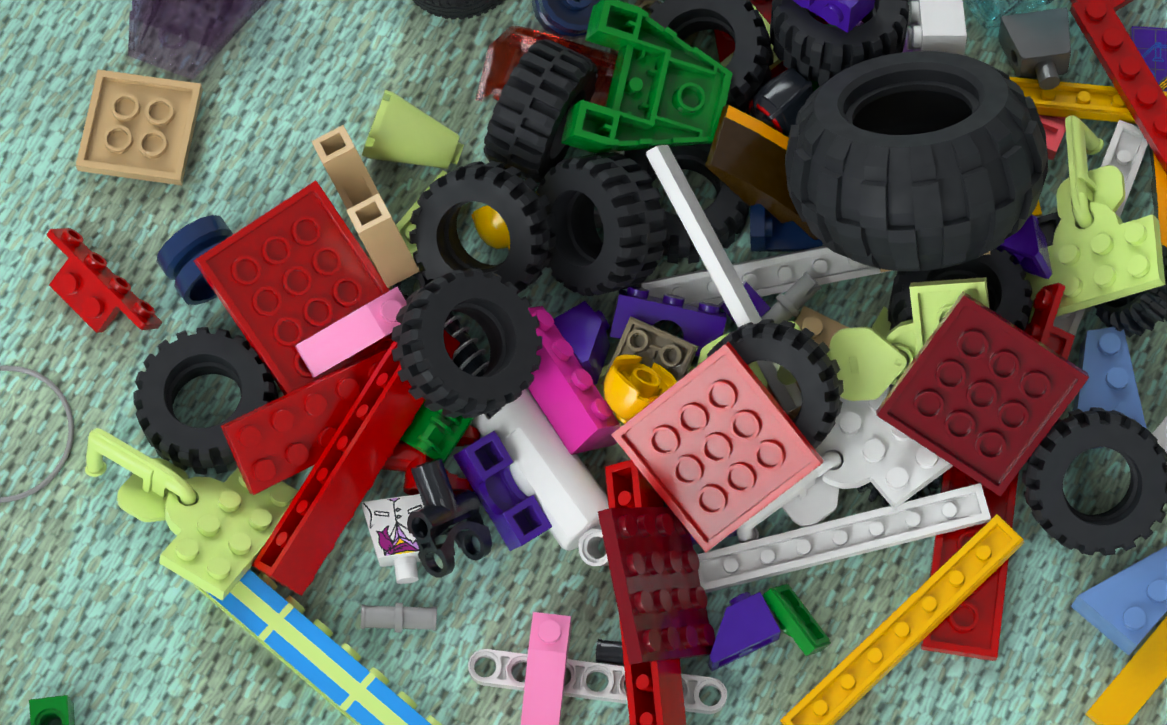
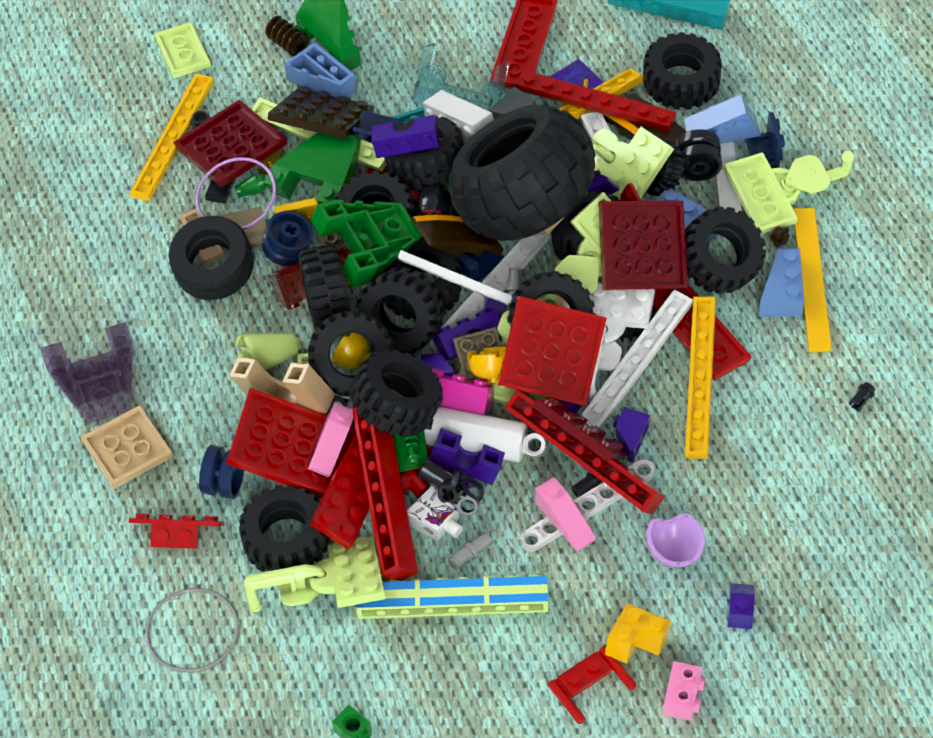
camera: 40 degrees left, 15 degrees down
(796, 619) = (650, 409): green plate -> none

